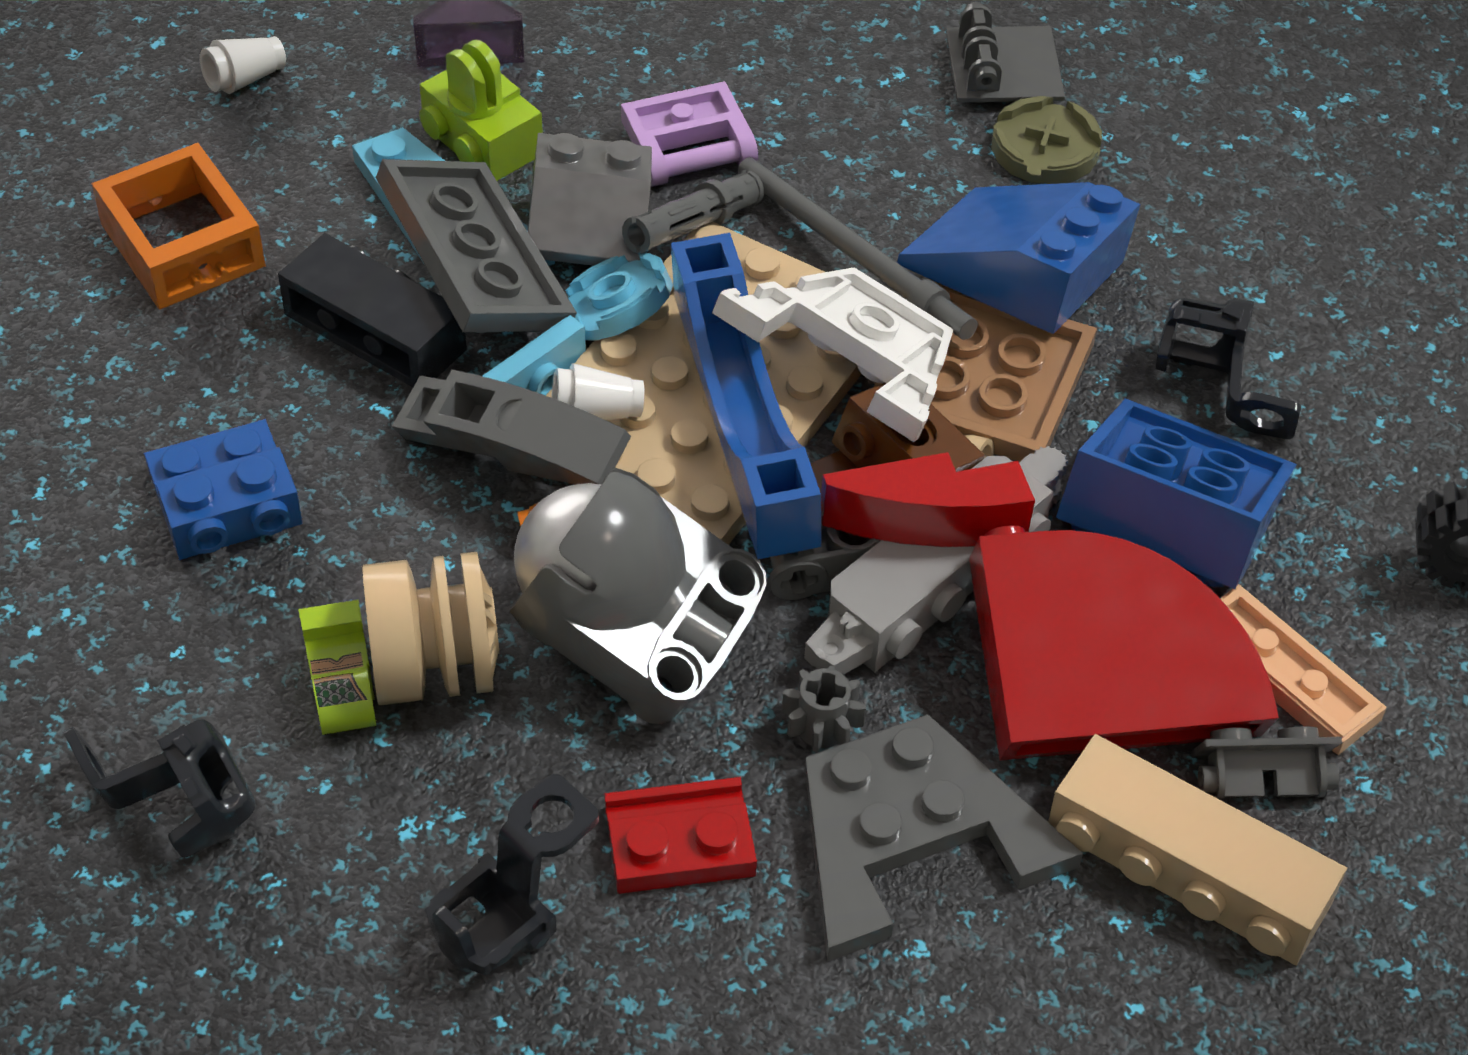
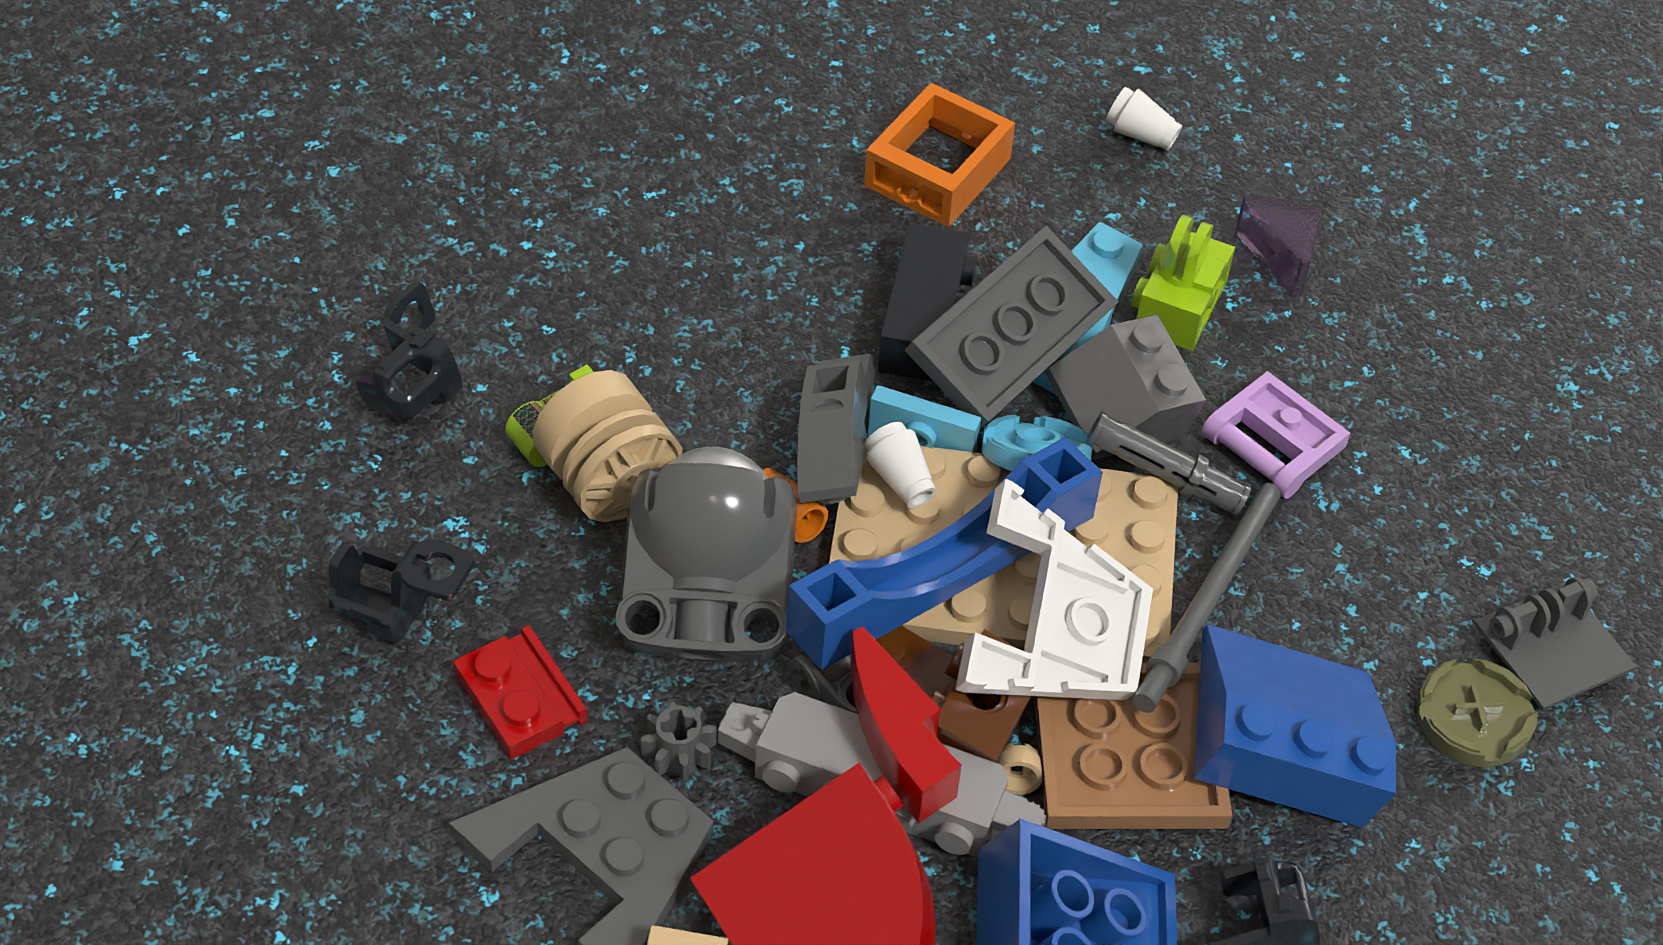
camera: 65 degrees right, 0 degrees up
(223, 489) = (701, 288): blue plate -> none

